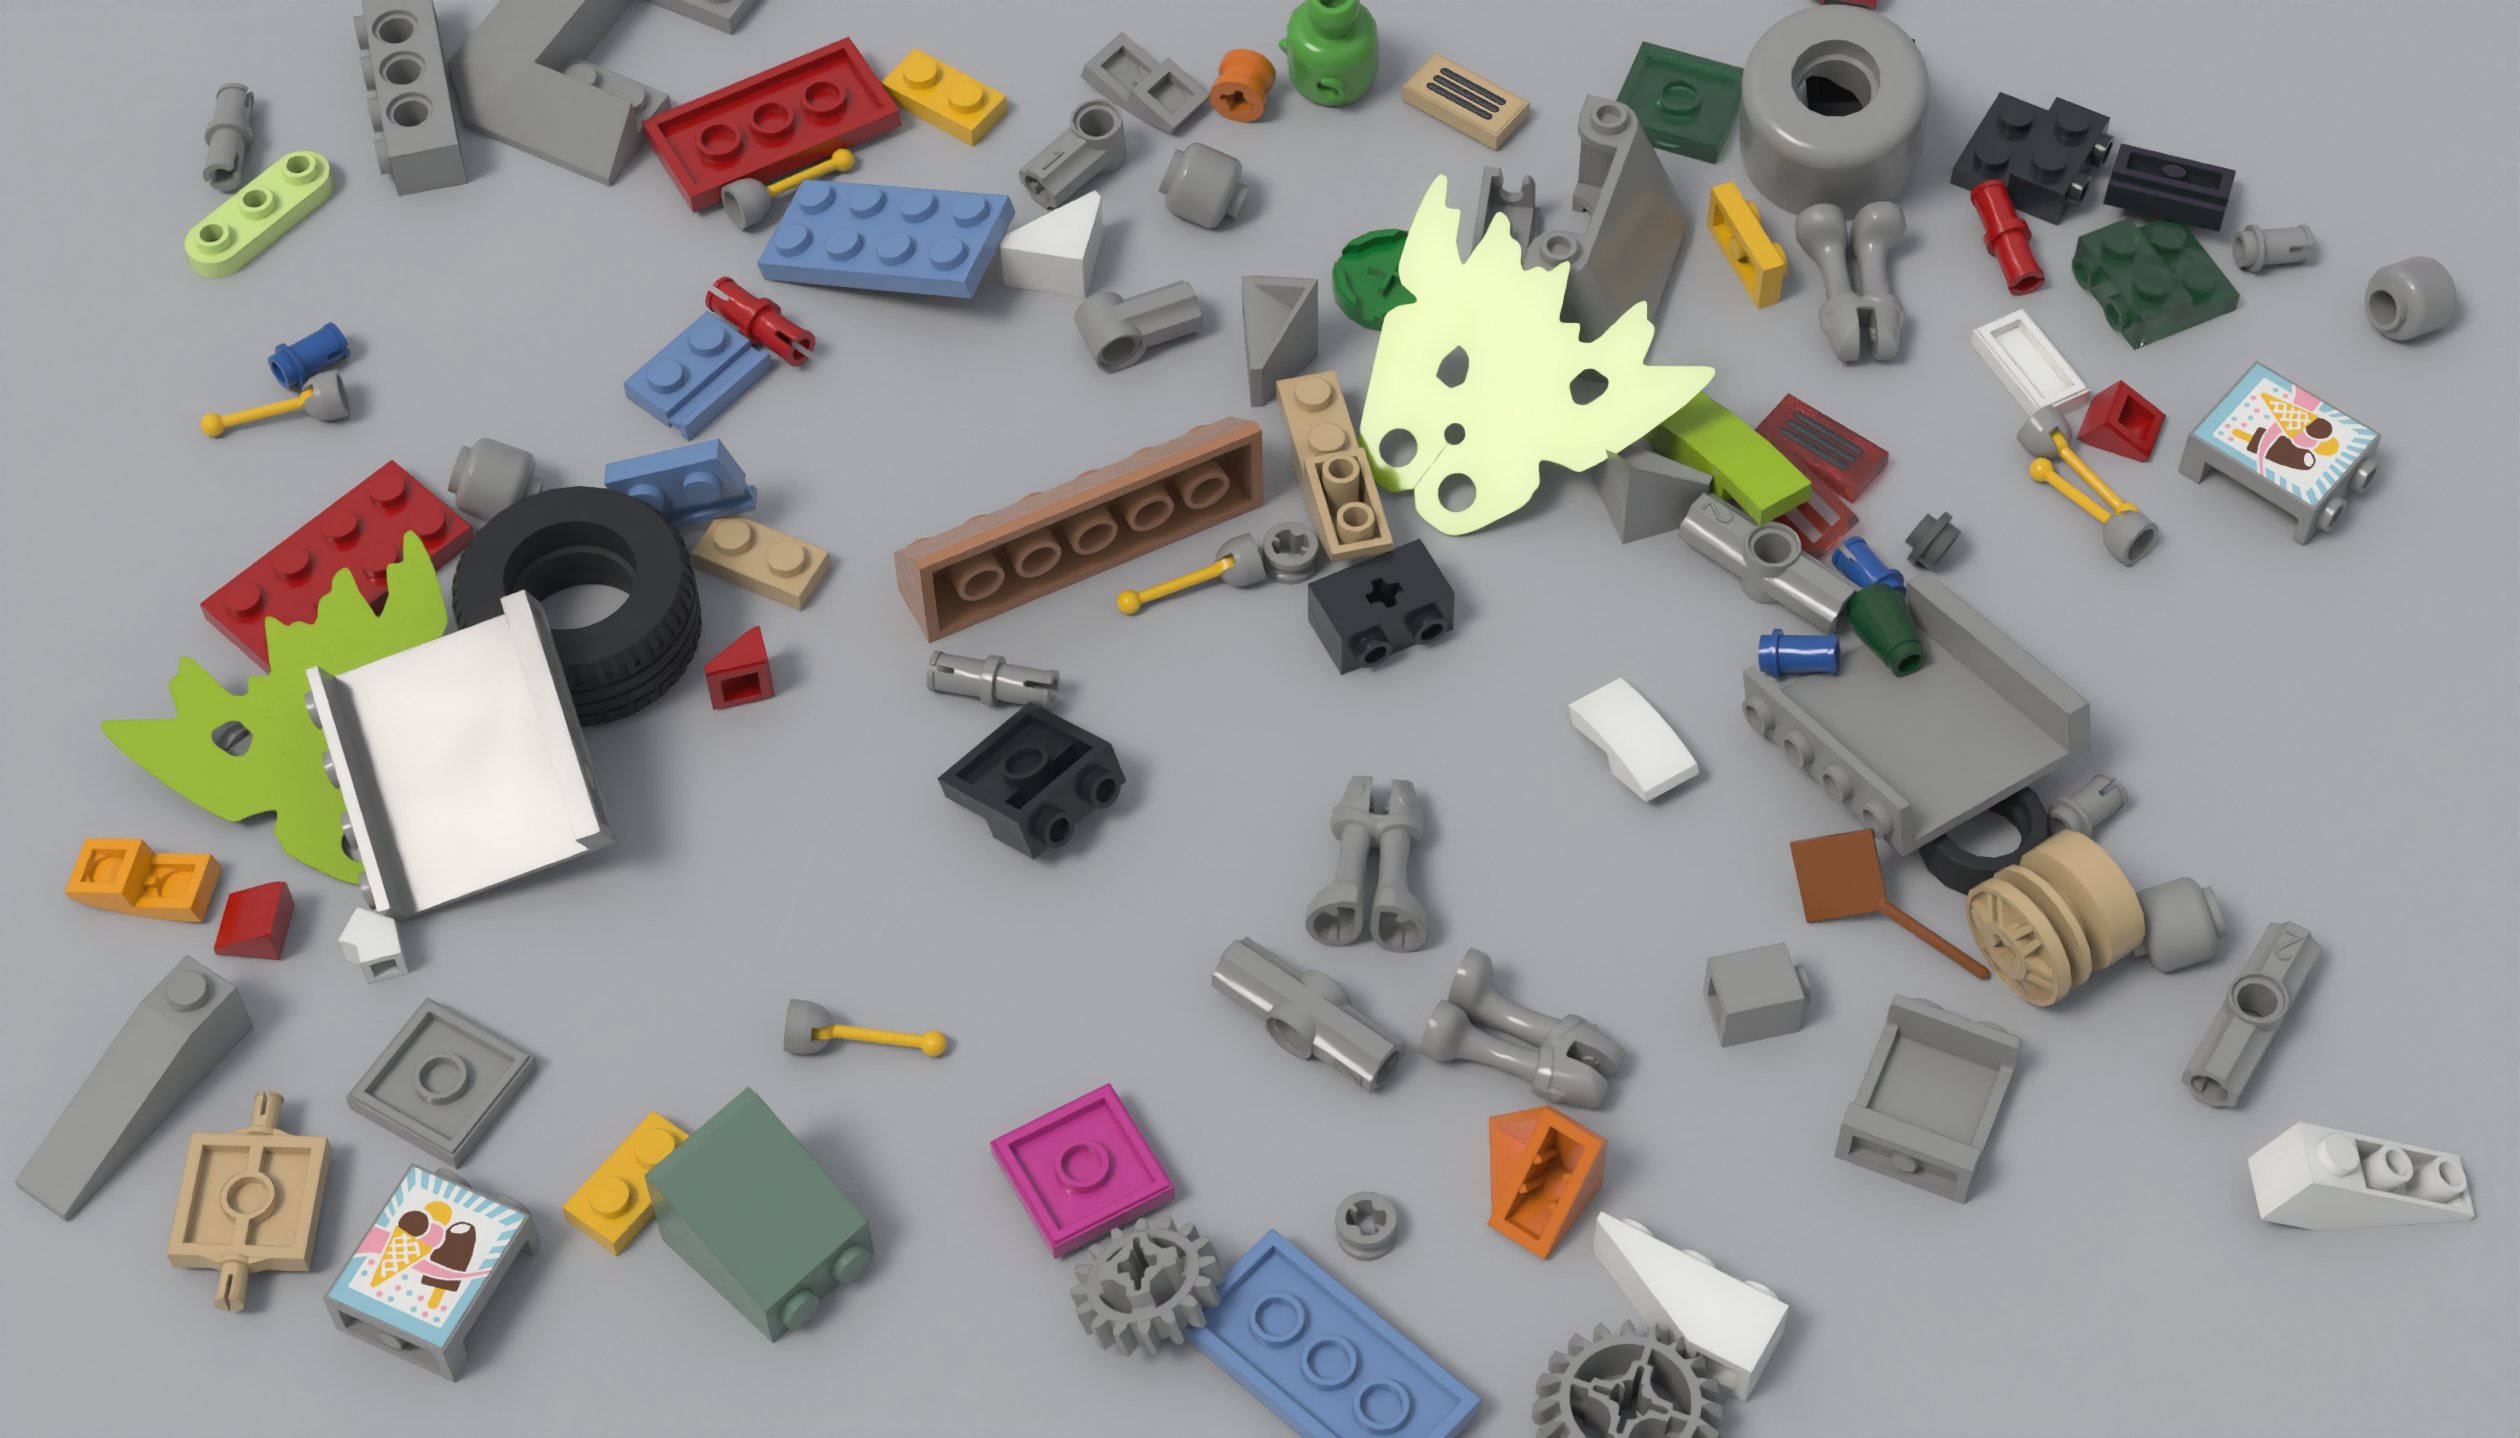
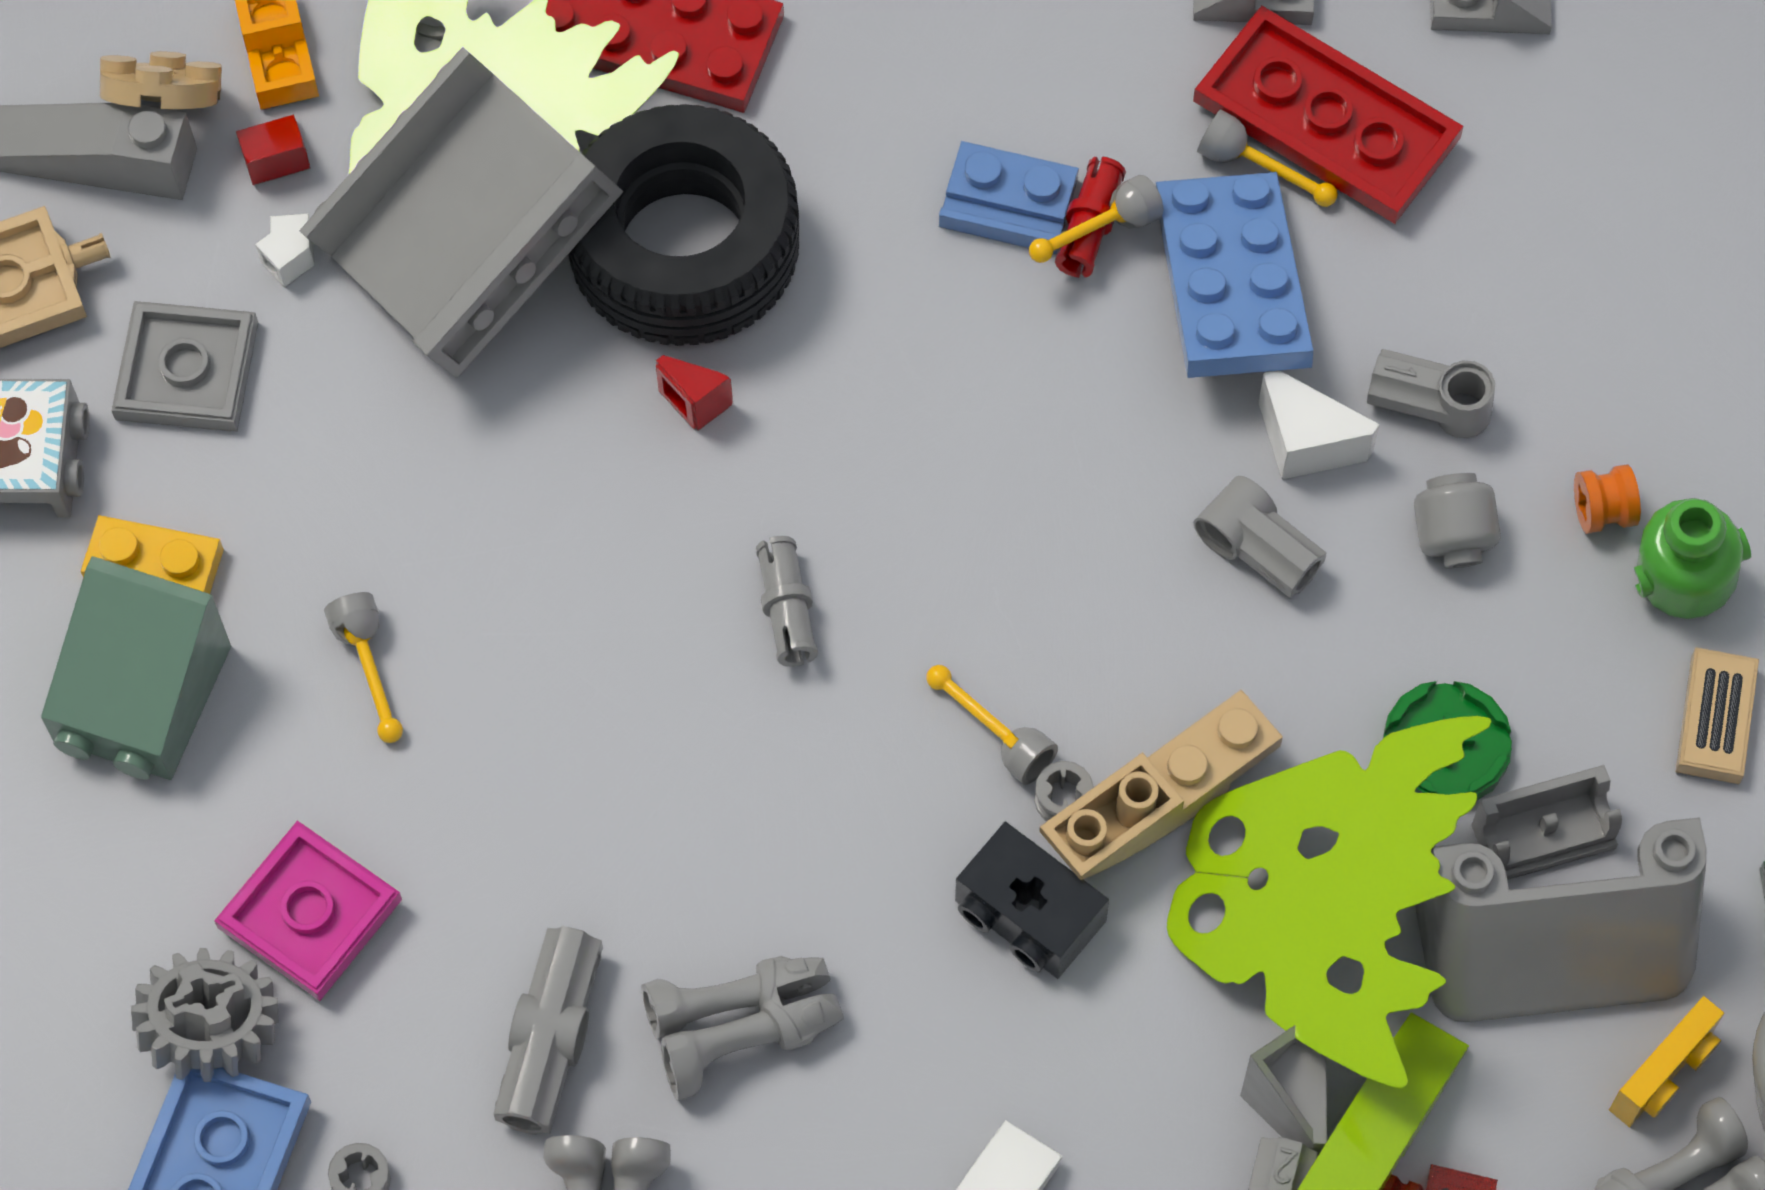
camera: 65 degrees right, 10 degrees up
(124, 983) = (162, 80): none -> tan plate
(492, 478) = (795, 94): light grey head -> none
(686, 483) = (845, 240): medium blue plate -> none
(761, 560) = (831, 348): tan plate -> none
(776, 278) = (1131, 205): none -> hinge
(945, 97) = (1451, 244): yellow plate -> none
(1035, 779) = (688, 684): black plate -> none
(1082, 527) = (988, 593): nougat slope -> none
(1137, 83) = (1566, 411): light grey slope -> none
(1278, 330) = (1295, 666): light grey slope -> none

